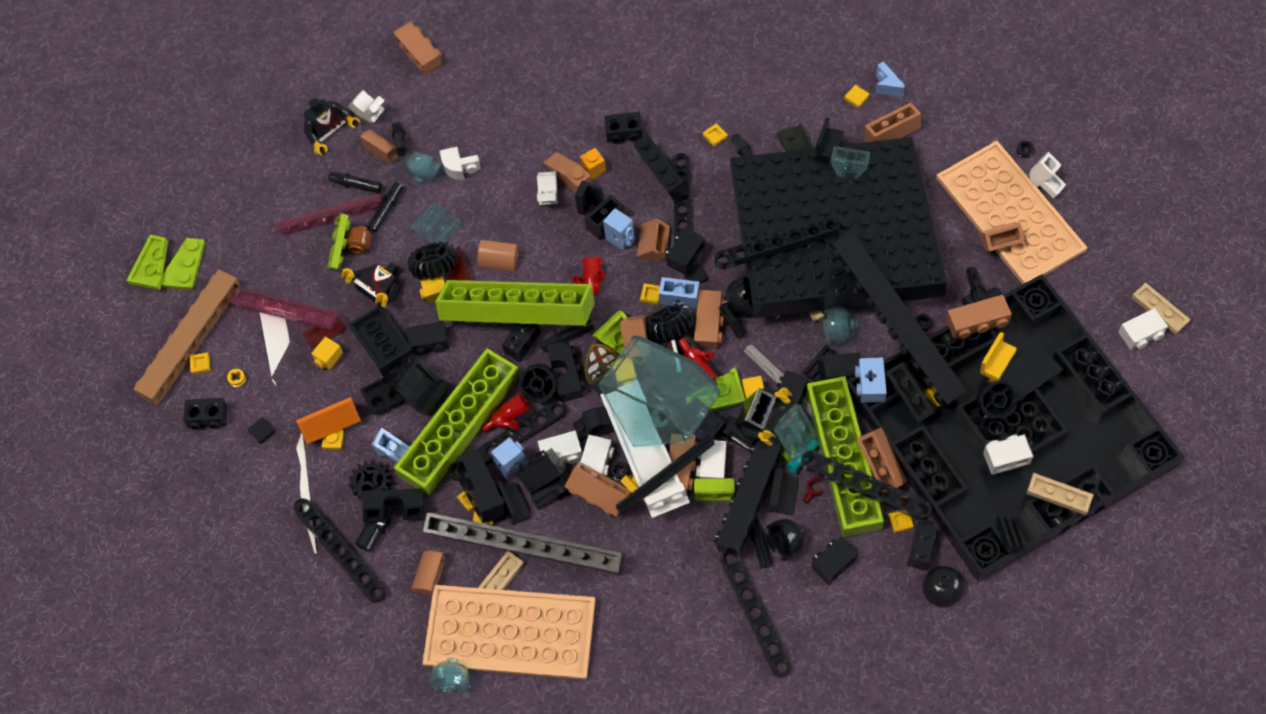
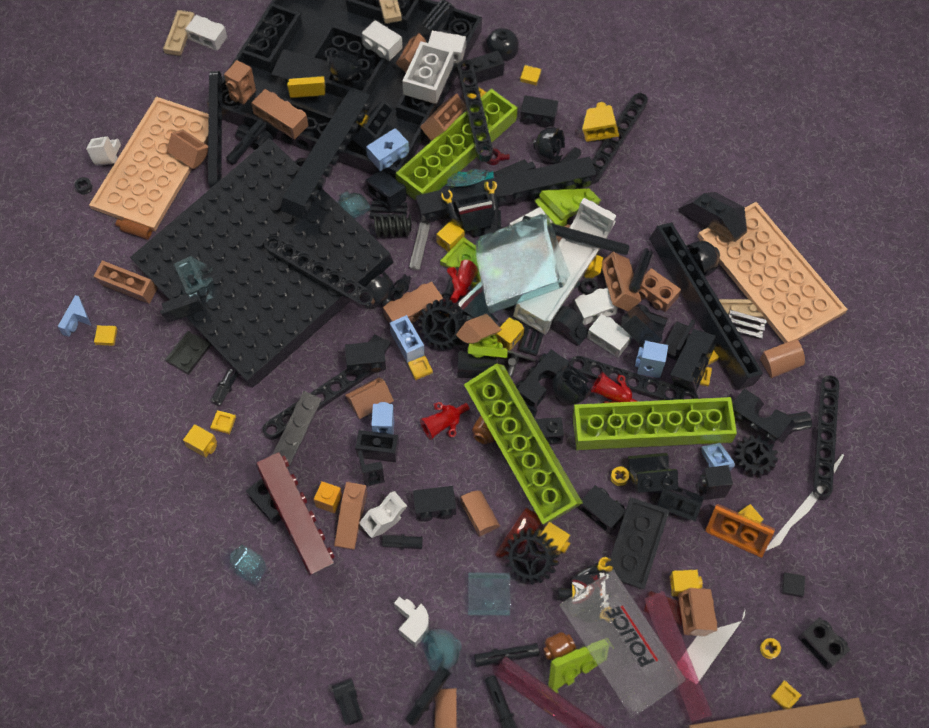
camera: 135 degrees left, 0 degrees up
(297, 341) = (697, 612): none -> nougat brick
(323, 270) = (622, 643): none -> clear slope
(371, 422) = (714, 482): none -> black brick
(439, 367) = (619, 470): none -> yellow bush
(444, 96) = (346, 698): none -> black piece
(449, 676) = (842, 279): clear light blue cylinder -> none
(481, 565) = (761, 328): none -> tile
(520, 194) = (402, 541): none -> black axle
(529, 230) = (434, 503): none -> black brick
(565, 576) = (705, 256): none -> black cylinder
(570, 525) = (661, 287): none -> nougat brick
(582, 83) = (248, 564): none -> clear light blue brick
(594, 127) = (294, 513): none -> brick
(594, 512) = (641, 270): none -> black axle
(598, 625) = (717, 214): none -> black wedge
(708, 109) = (200, 441): none -> yellow brick
(710, 507) = (567, 202): none -> lime wing
(777, 603) = (600, 123): none -> yellow torso
(799, 350) = (392, 226): none -> pearl dark grey piece
(887, 588) = (530, 75): none -> yellow tile
(934, 465) = (428, 72): none -> white brick
(948, 162) = (134, 228): none -> dark orange cylinder
(958, 507) = (451, 42): none -> white brick
(981, 485) = (408, 53): none -> nougat brick
(1012, 264) = (215, 128): none -> black beam
(1034, 298) = (240, 82): none -> nougat brick

